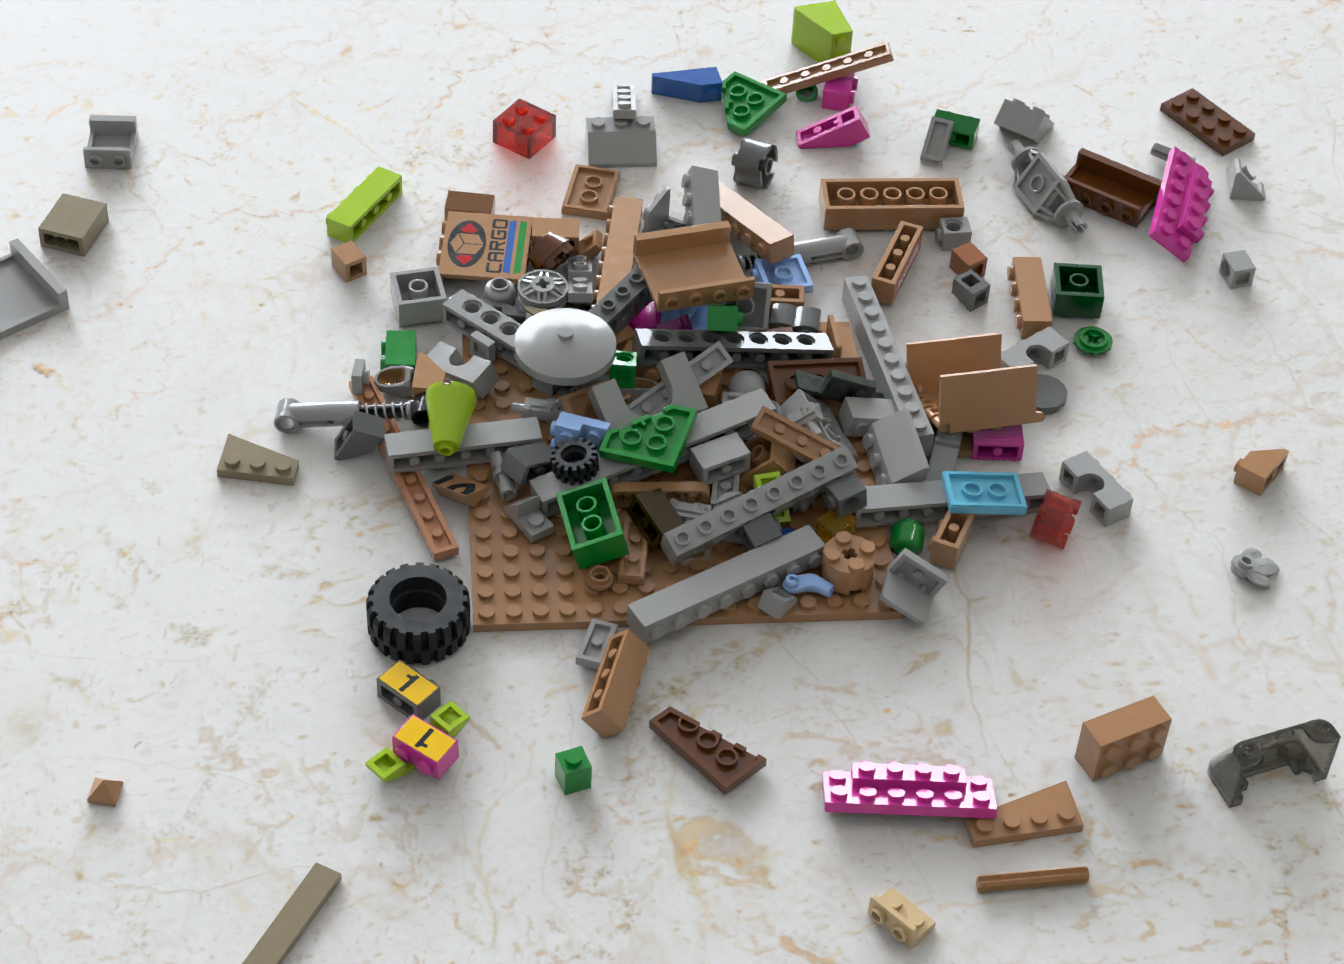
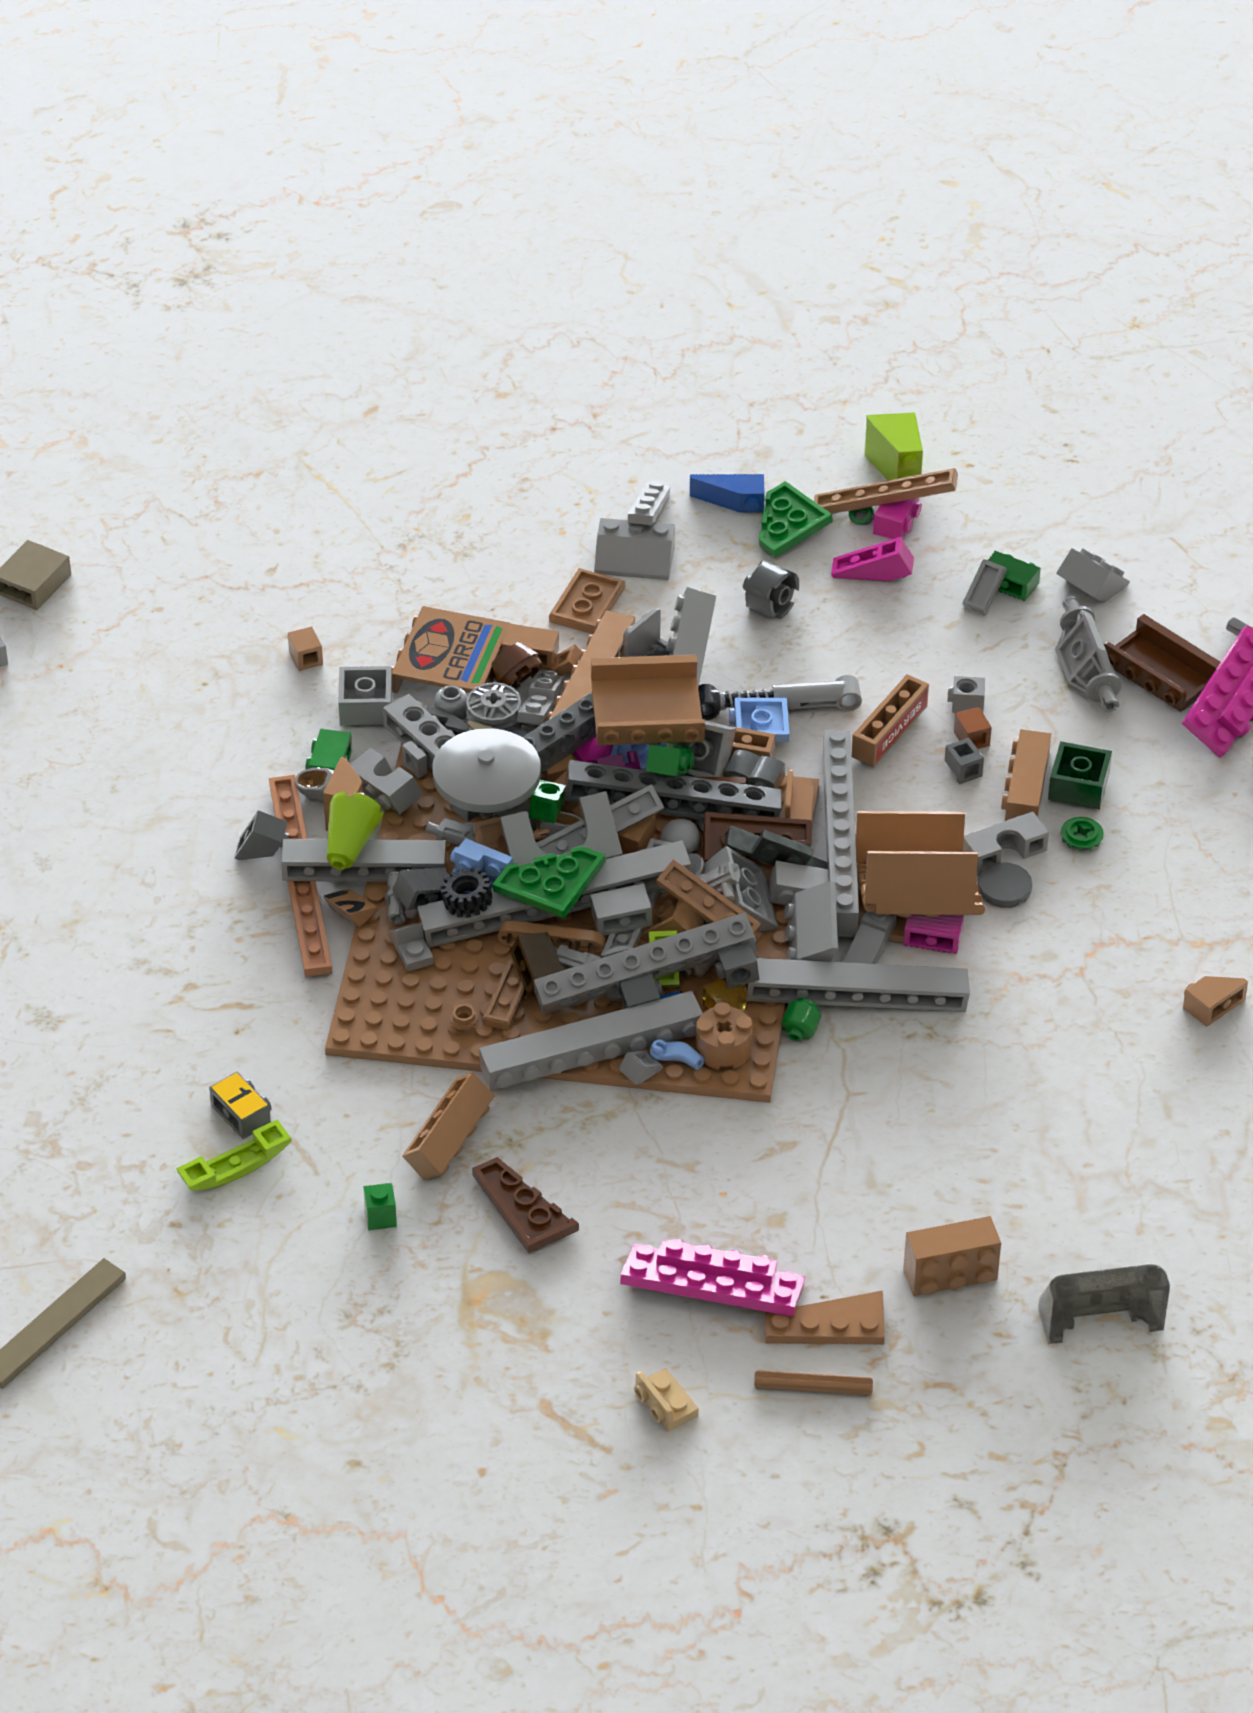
camera: 15 degrees right, 0 degrees up
(111, 142) = (94, 487): light grey panel -> none
(255, 463) = (153, 852): dark tan wing -> none
(294, 415) = (204, 806): light grey piece -> none
(359, 376) = (278, 774): light grey plate -> none
(364, 205) = (339, 588): lime brick -> none
(418, 639) = (270, 1054): black tyre -> none
(425, 747) = (238, 1162): brick -> none
(469, 202) = (450, 599): medium nougat brick -> none
(524, 128) = (533, 521): clear red brick -> none
(592, 523) = (469, 959): green brick -> none
(595, 642) = (440, 1082): light grey plate -> none
(754, 227) = (740, 658): brick -> none
(887, 202) = (898, 649): medium nougat brick -> none
(911, 586) = (785, 1070): light grey bracket -> none
(951, 539) = (846, 1025): medium nougat brick -> none
(983, 493) = (891, 982): medium azure tile -> none
(1055, 519) = (963, 1019): clear red brick -> none
(1109, 500) = (1018, 977): light grey arch -> none
(1254, 567) = (1168, 1100): light grey plate -> none

